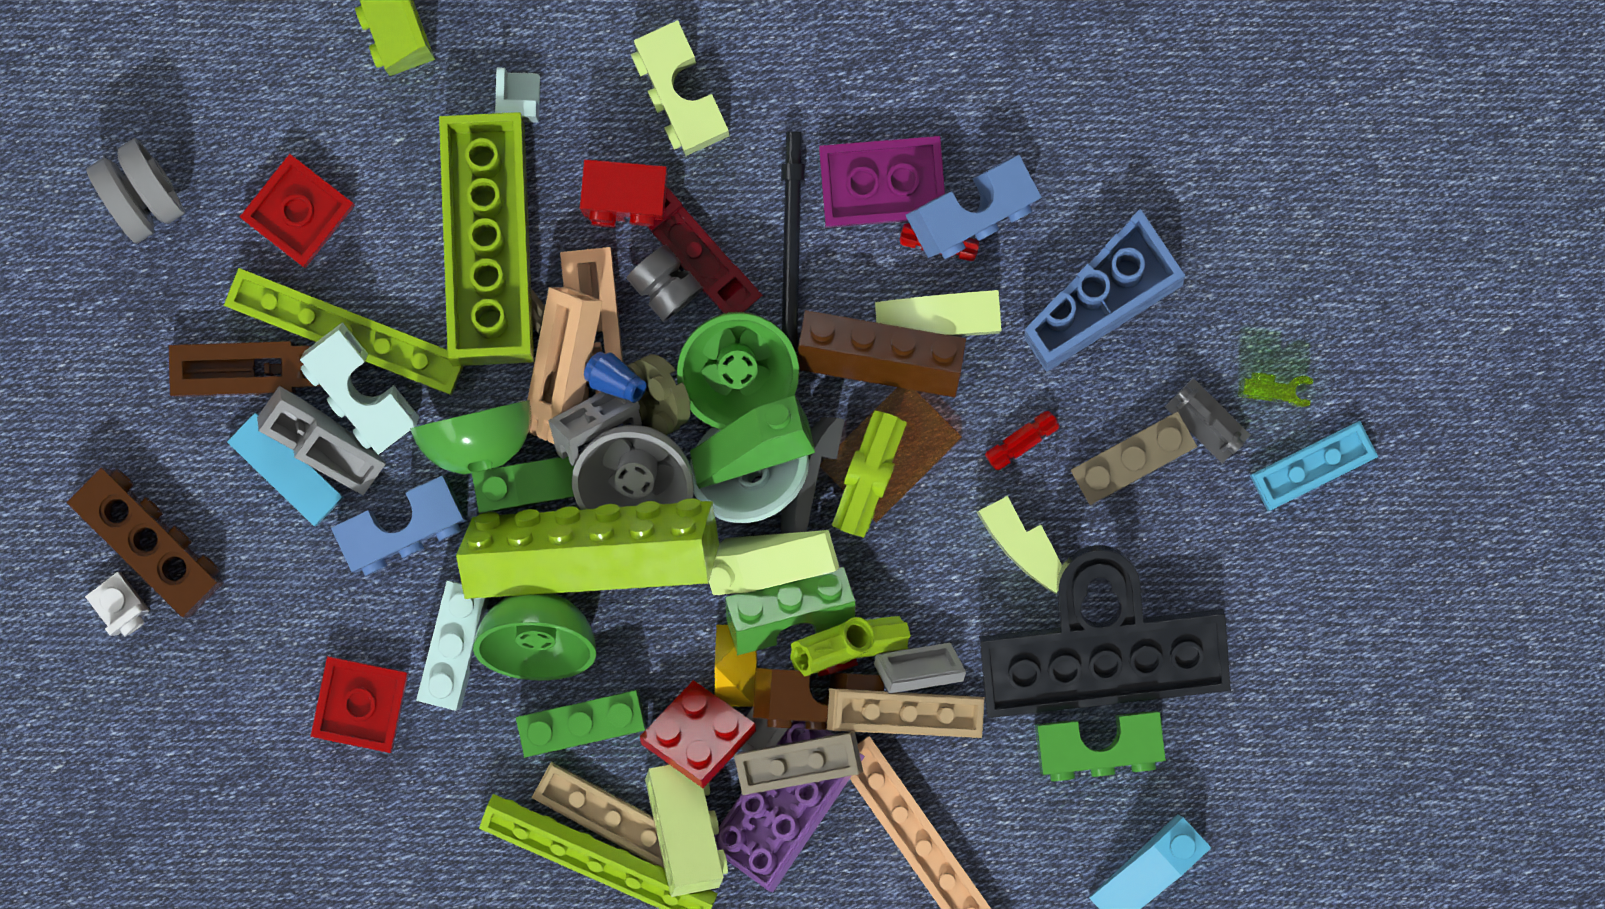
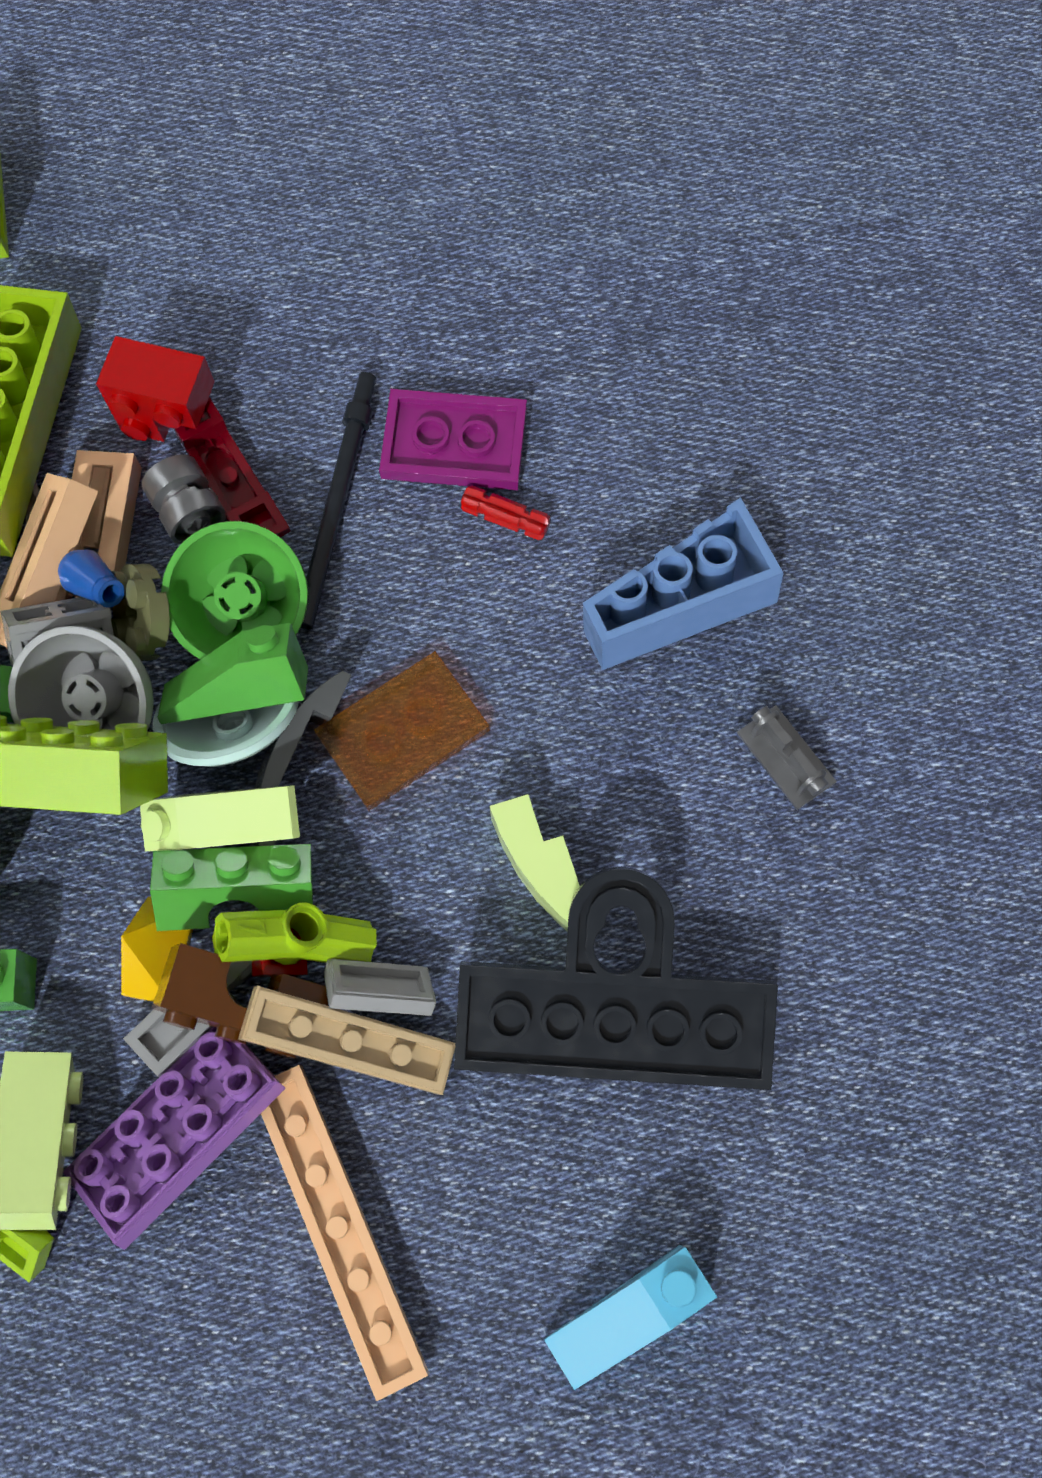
camera: 15 degrees right, 15 degrees down
(518, 94) = (88, 296): light aqua panel -> none
(693, 122) = (260, 343): yellowish green arch -> none
(698, 734) = (81, 1021): plate -> none
(798, 763) = (193, 1077): dark tan plate -> none
(869, 473) = (367, 742): lime piece -> none
(880, 353) = (410, 611): reddish brown brick -> none
(945, 314) = (489, 586): yellowish green slope -> none
(1003, 193) = (515, 483): medium blue arch -> none
(1022, 440) = (560, 742): red axle -> none
(1133, 458) = (690, 784): dark tan plate -> none
(1136, 744) = (639, 1138): bright green arch -> none
(1263, 387) = (863, 730): clear neon green plate -> none
(1314, 465) = (909, 832): medium azure tile -> none

